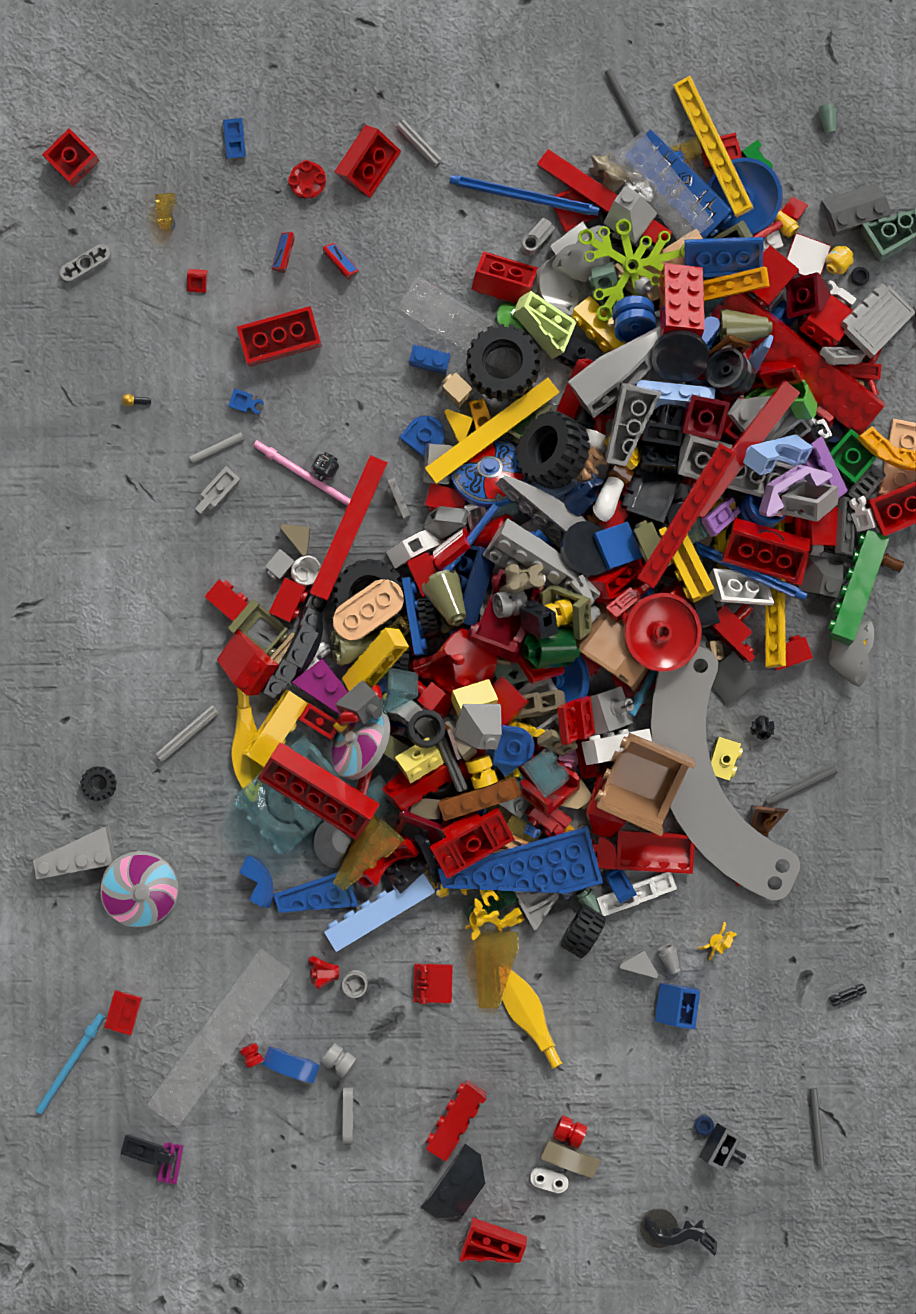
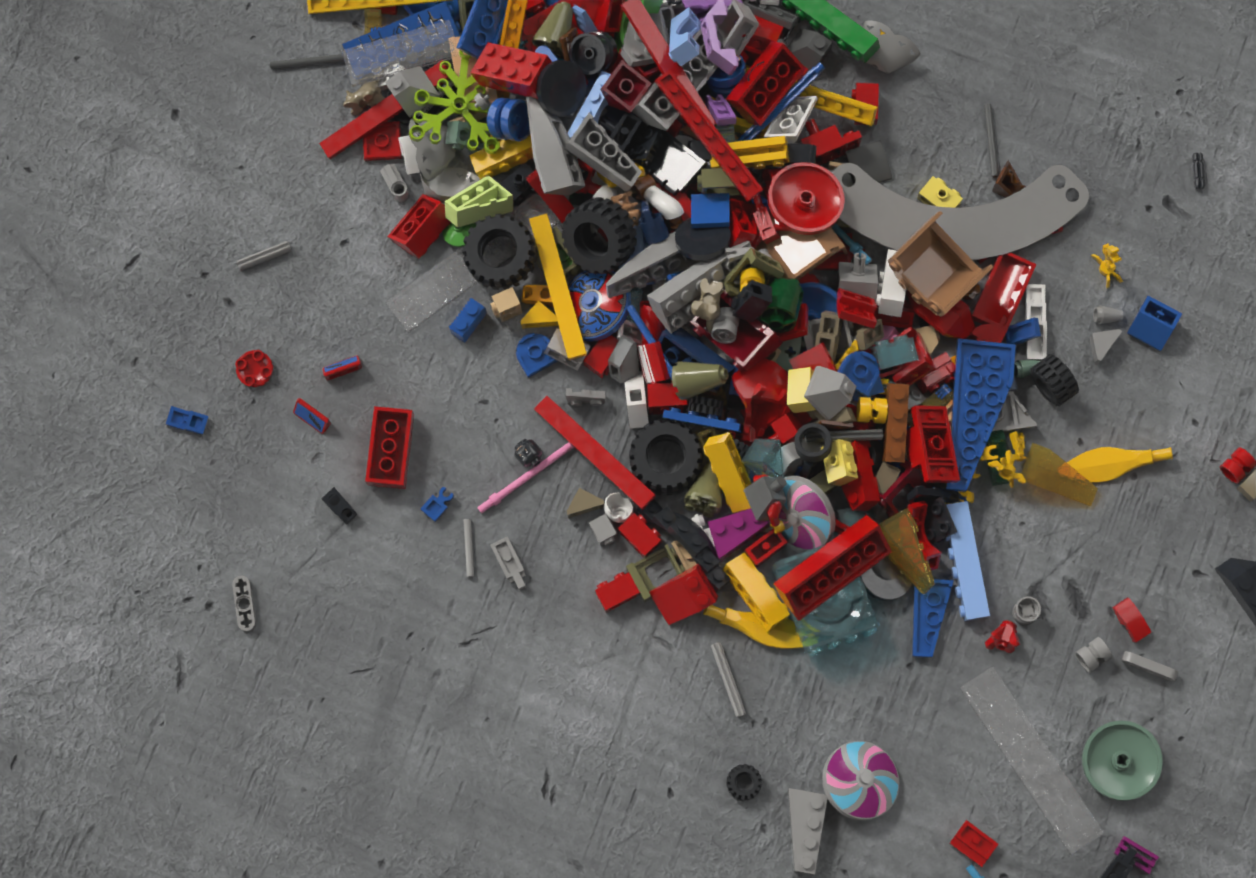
camera: 65 degrees left, 10 degrees down
(70, 157) = (140, 576): red brick -> none
(129, 400) = (390, 612): piece -> none
(164, 211) = (234, 512): clear yellow leg -> none
(197, 280) = (304, 506): red slope -> none
(208, 312) = (339, 505): none -> black leg
(245, 1138) = (1140, 760): none -> sand green dish
(251, 1055) = (1058, 736): red wheel -> none
(257, 871) = (885, 662): blue brick -> none
(289, 1065) = (1082, 700): blue brick -> none
(367, 160) = (260, 307): red slope -> none
(368, 609) = (679, 459): light nougat tile -> none
(385, 1083) = (1132, 619): none -> red slope
(432, 983) = (1052, 540): red hinge -> none
(455, 1120) = (1189, 566): red wedge -> none
(526, 195) = (351, 180): blue piece -> none
(762, 727) = (925, 152): black gear -> none

